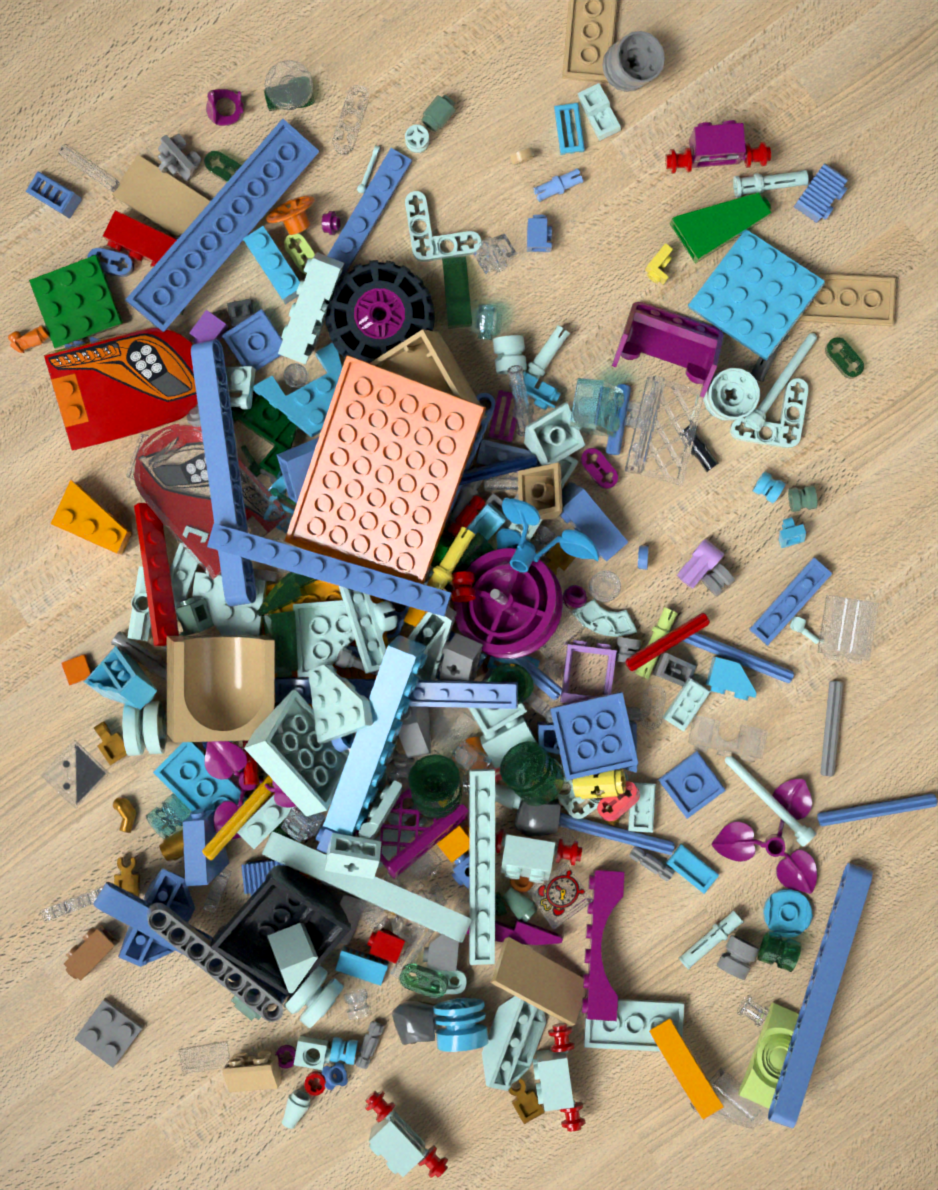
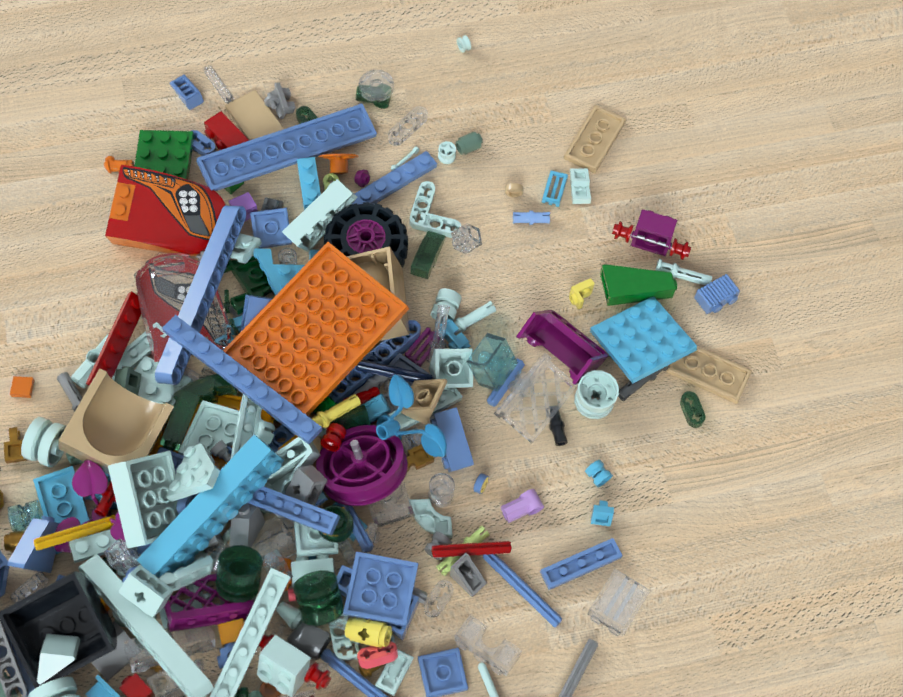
camera: 15 degrees right, 25 degrees down
(88, 519) = (89, 289): light orange wedge -> none
(121, 680) = (46, 400): medium azure wedge -> none
(213, 114) = (318, 86): magenta piece -> none
(486, 321) = (439, 278): clear light blue head -> none
(538, 234) = (502, 241): medium blue brick -> none
(575, 596) = (416, 490): magenta plate -> none
(581, 646) = (404, 529): lavender window -> none
(604, 465) = (480, 408): magenta beam -> none
(633, 61) = (616, 160): light grey wheel -> none
(686, 704) = (465, 606): light aqua plate -> none
(716, 580) = (531, 523): light grey wheel -> none
(729, 676) = (509, 600): medium azure slope -> none
(756, 418) = (608, 419): light aqua piece -> none
(779, 430) = (623, 438): light aqua beam -> none
(797, 624) = (580, 586): light aqua hand -> none
(802, 498) = (621, 492): sand green wheel -> none

